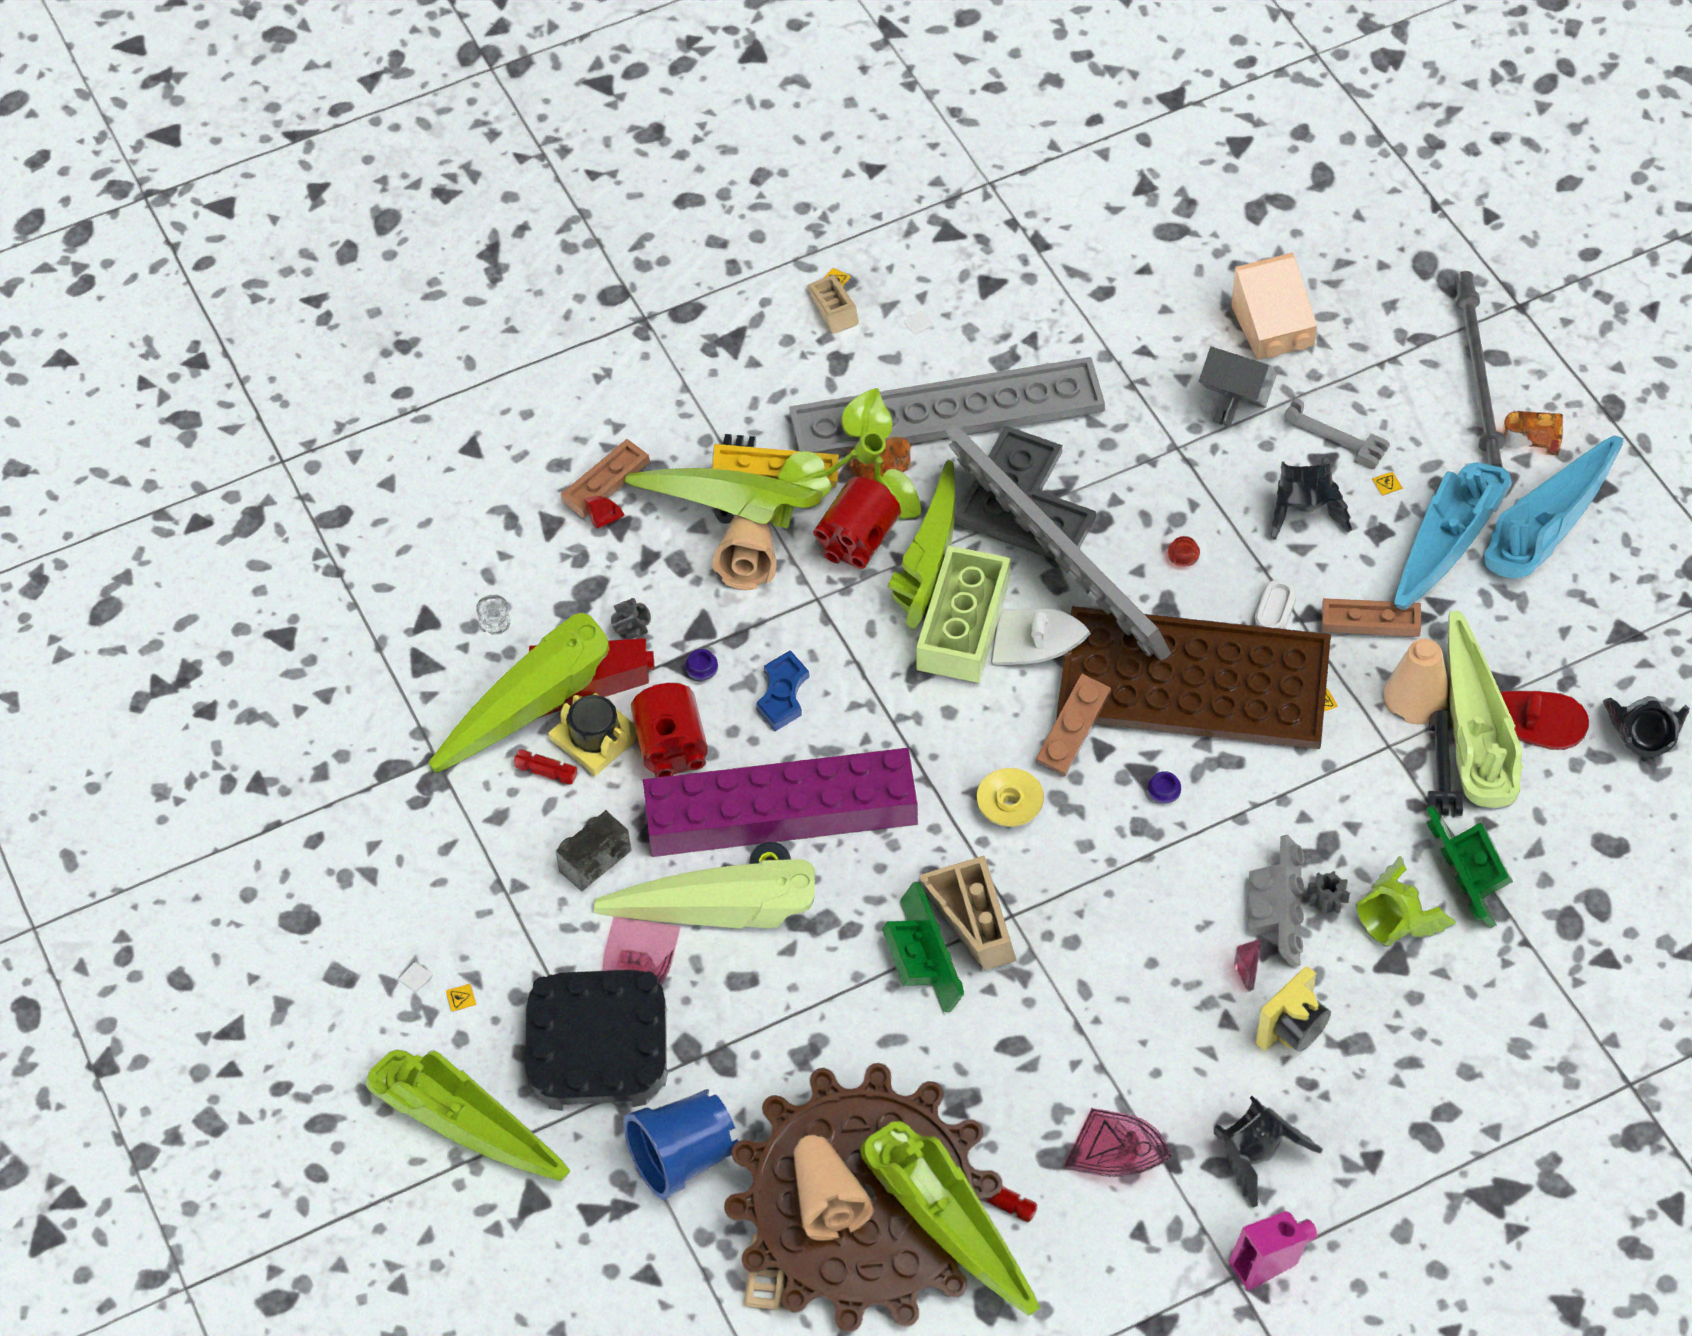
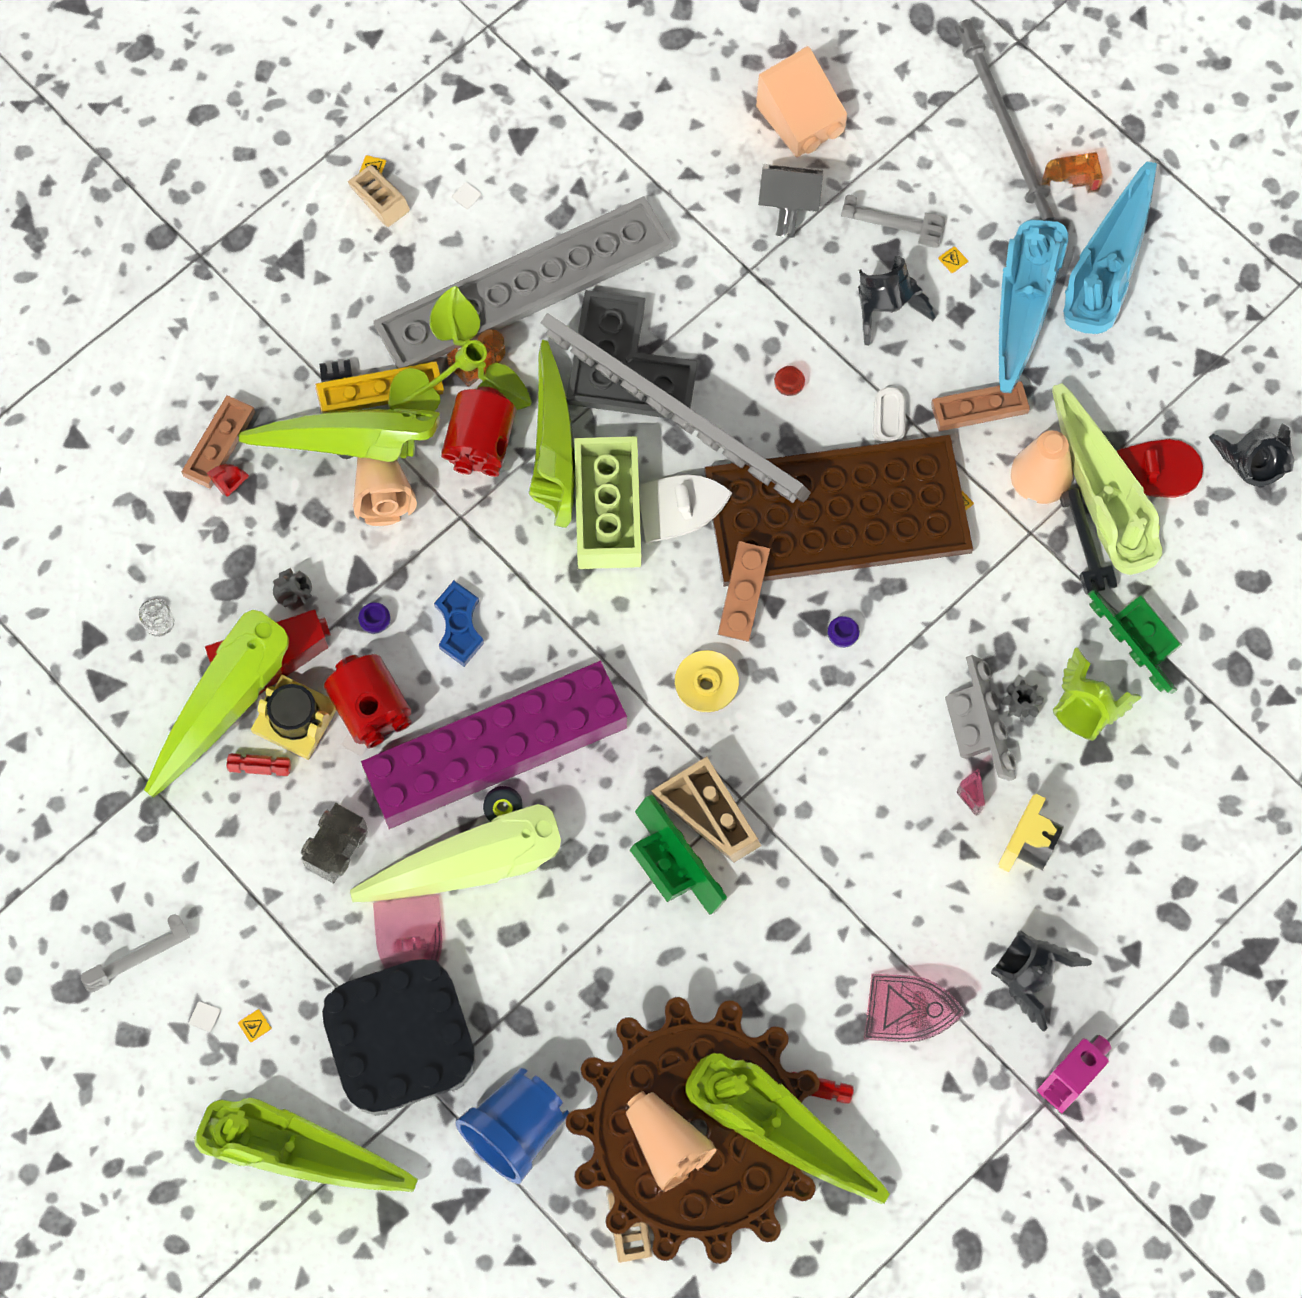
camera: 20 degrees left, 15 degrees up
(324, 911) = (99, 977): none -> light grey hinge

